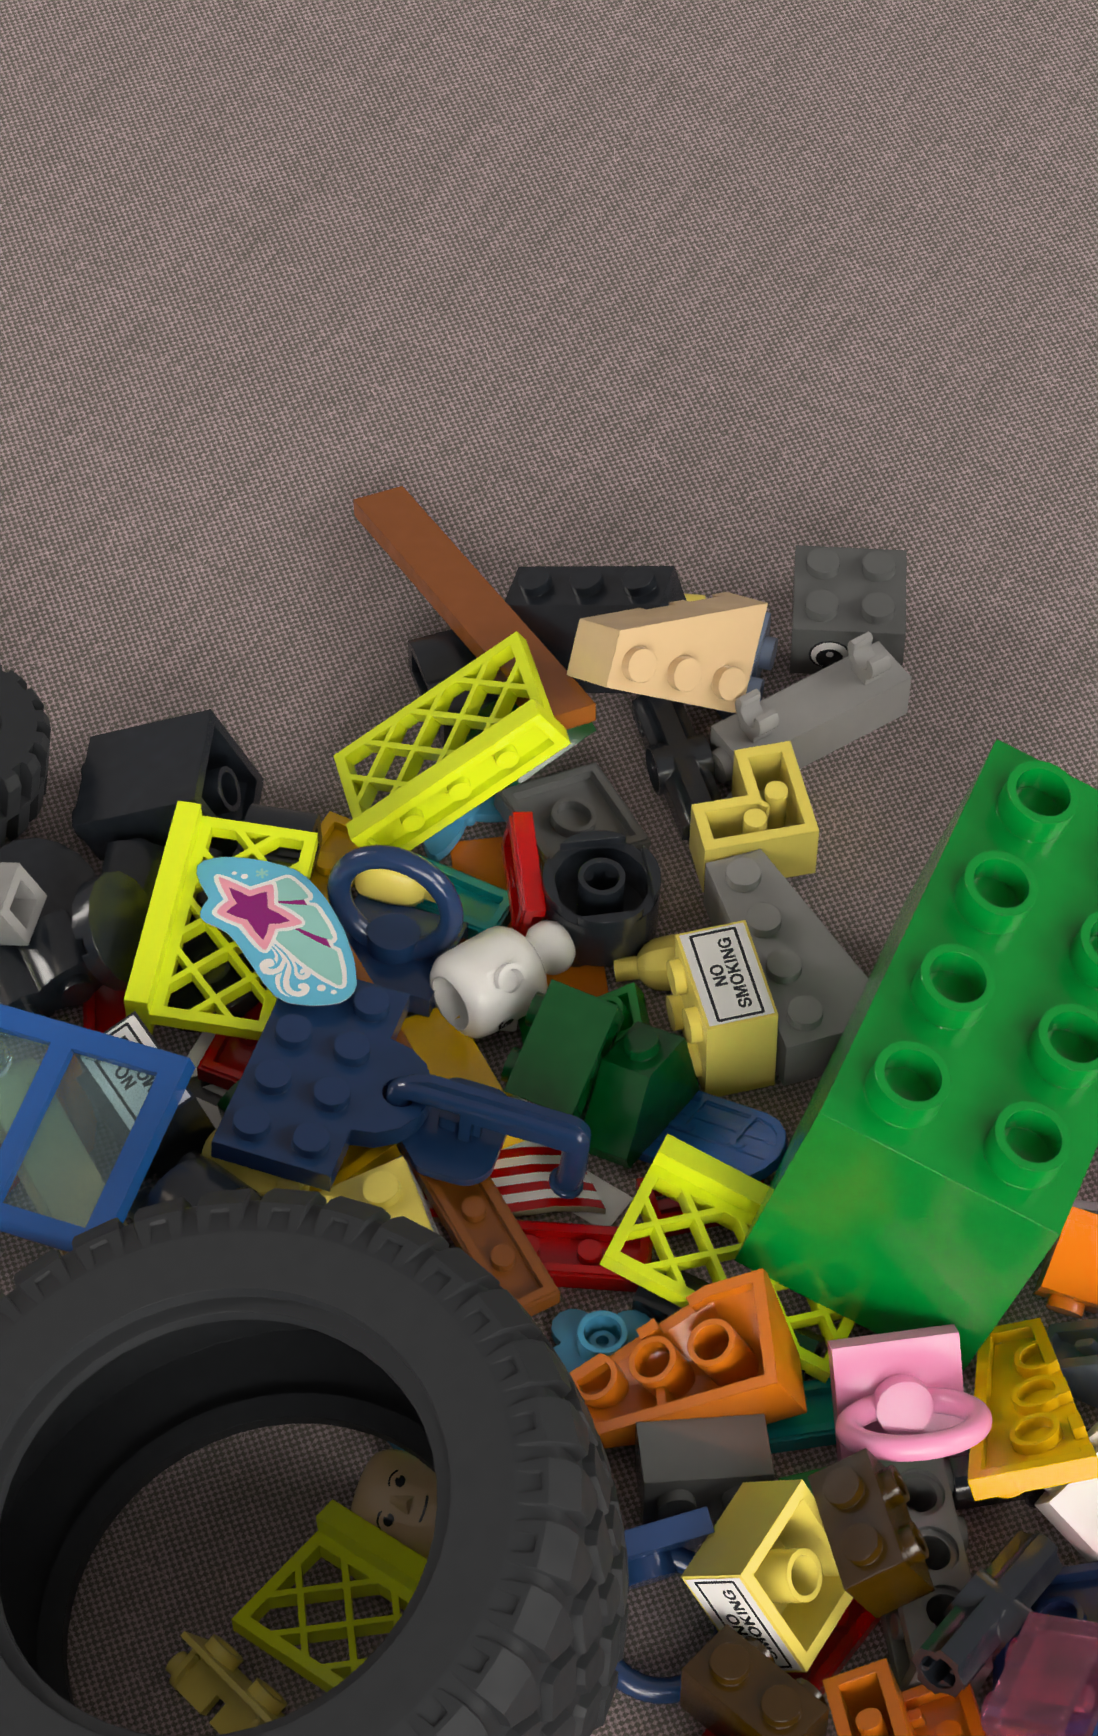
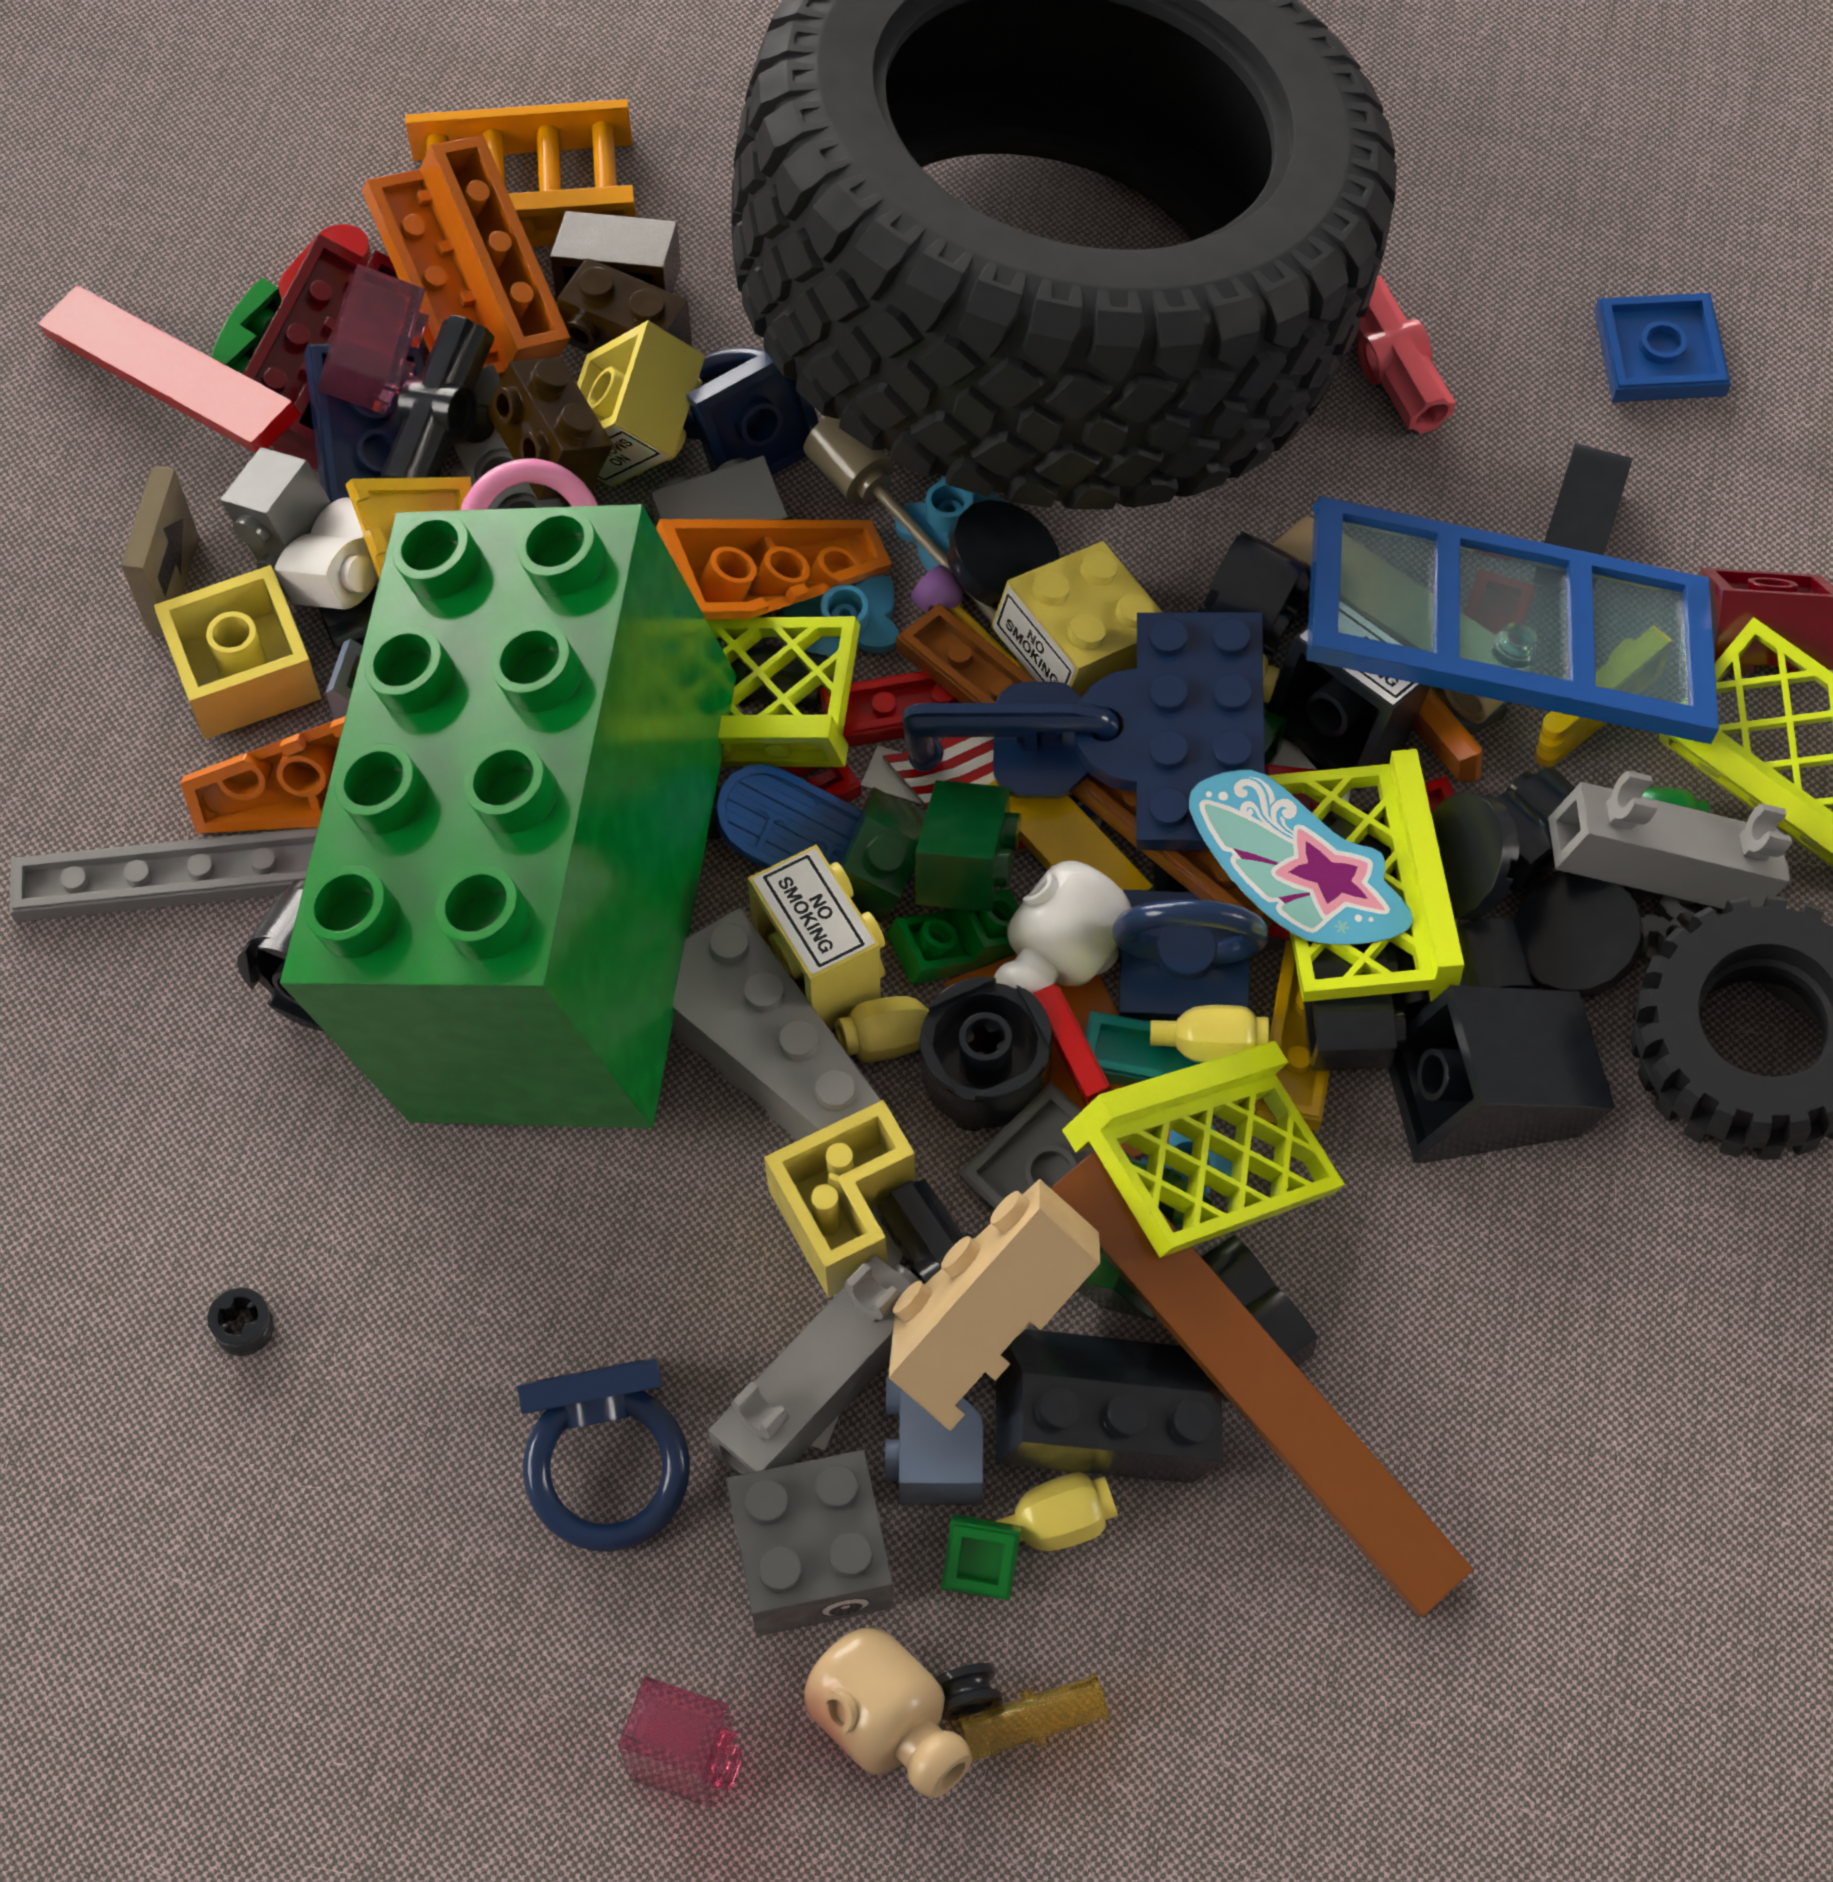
camera: 165 degrees right, 10 degrees up
(711, 489) = (1034, 1717): none -> clear yellow pin
(714, 578) = (981, 1557): none -> green tile
(758, 498) = (968, 1690): none -> black bush
(819, 499) = (886, 1711): none -> tan piece
(977, 498) = (680, 1743): none -> clear pink brick
(990, 701) = (592, 1399): none -> dark blue tile

